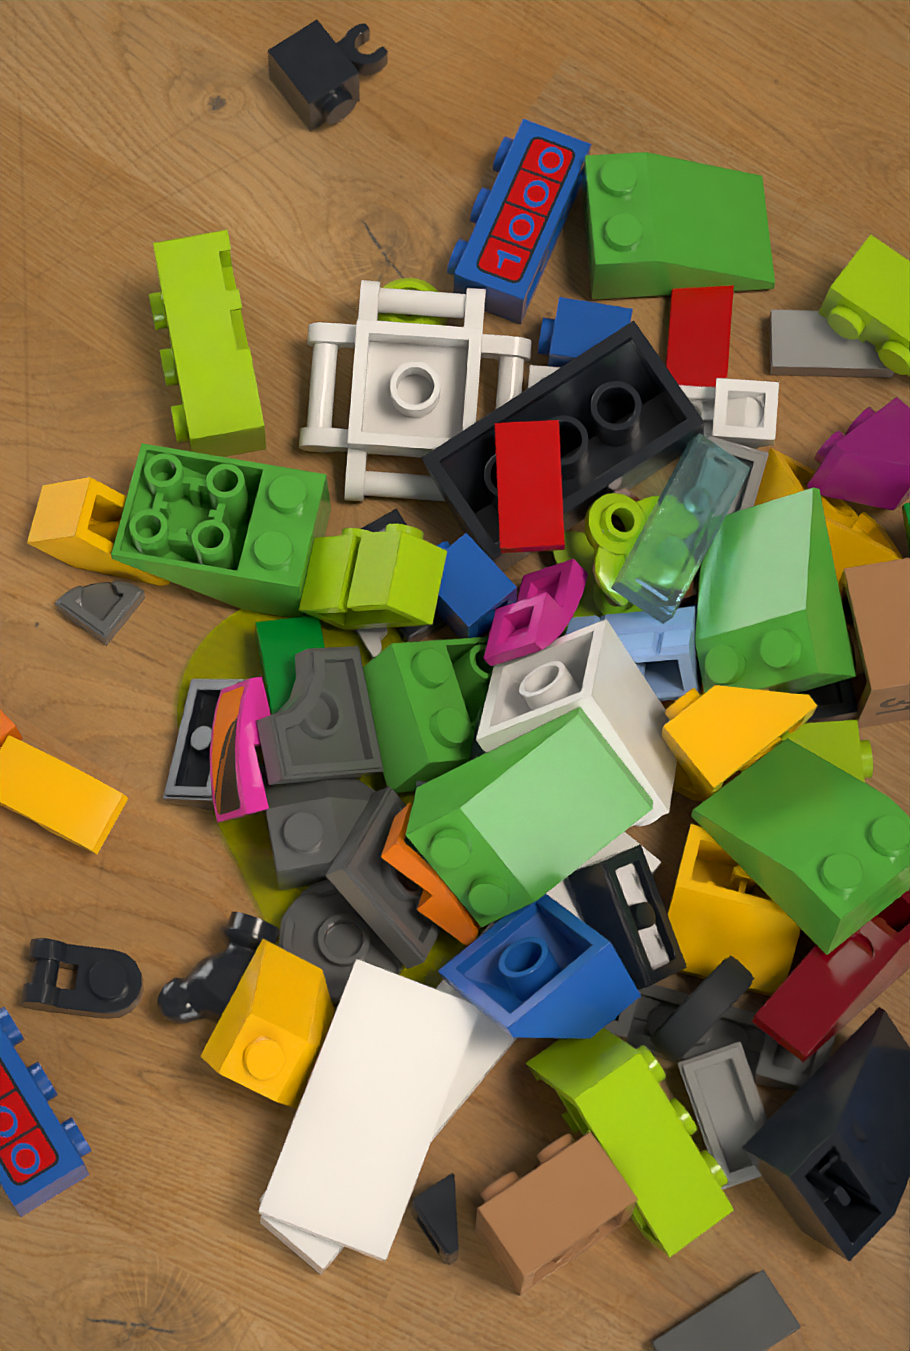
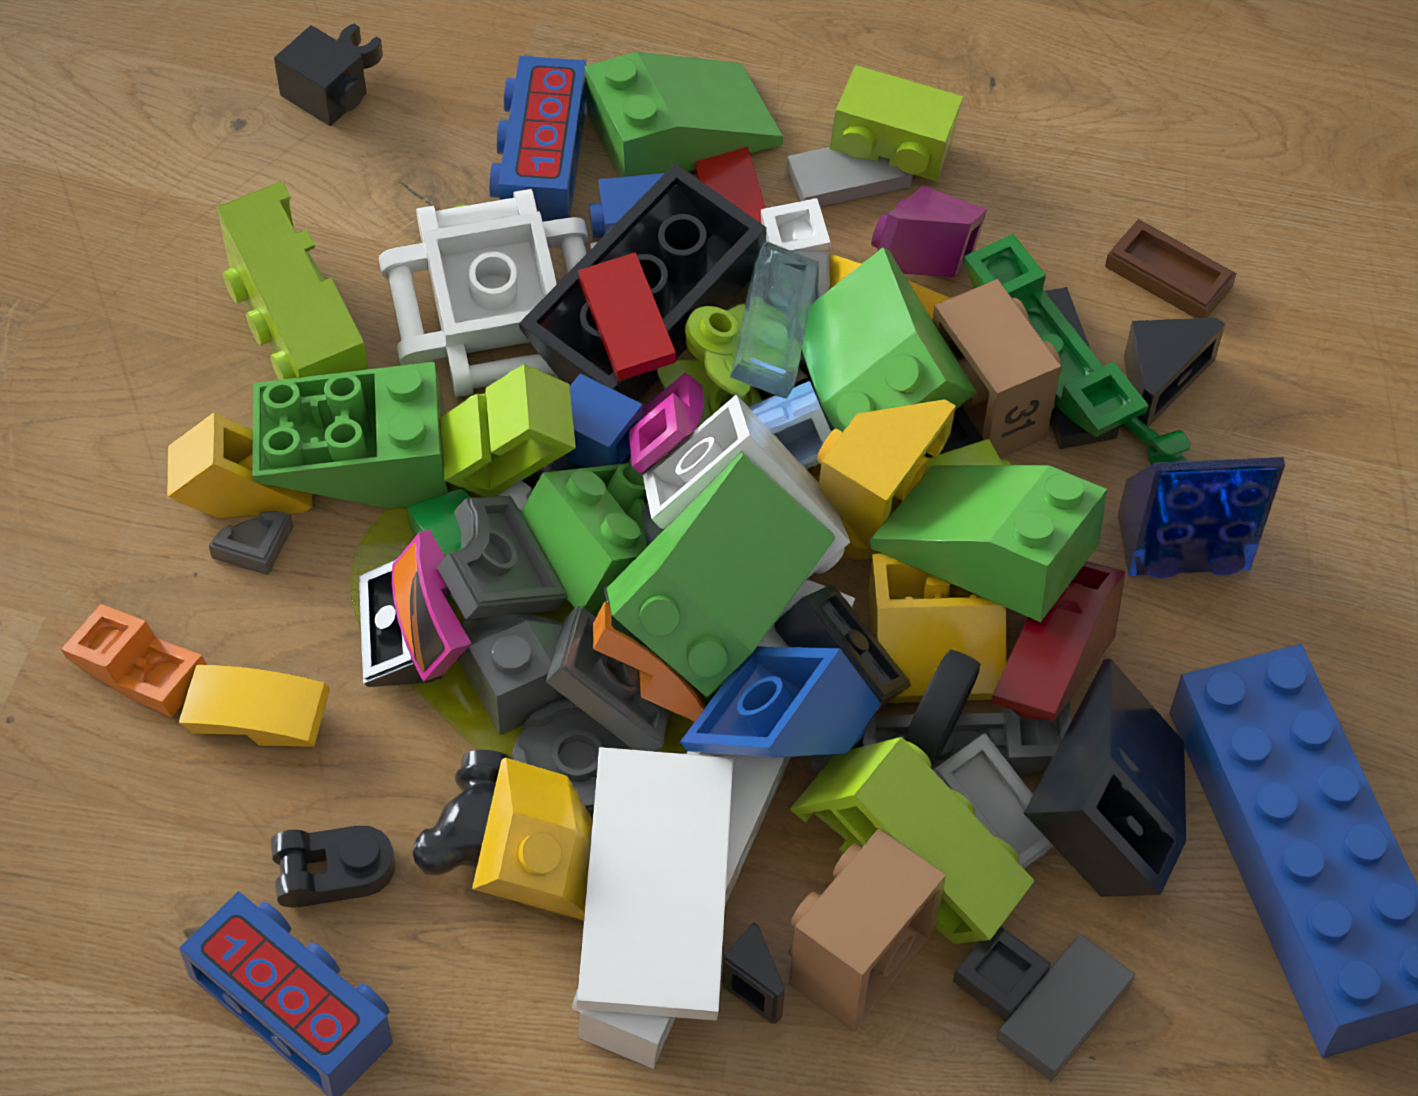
camera: 15 degrees left, 15 degrees down
(674, 1287) = (1001, 973): none -> black plate

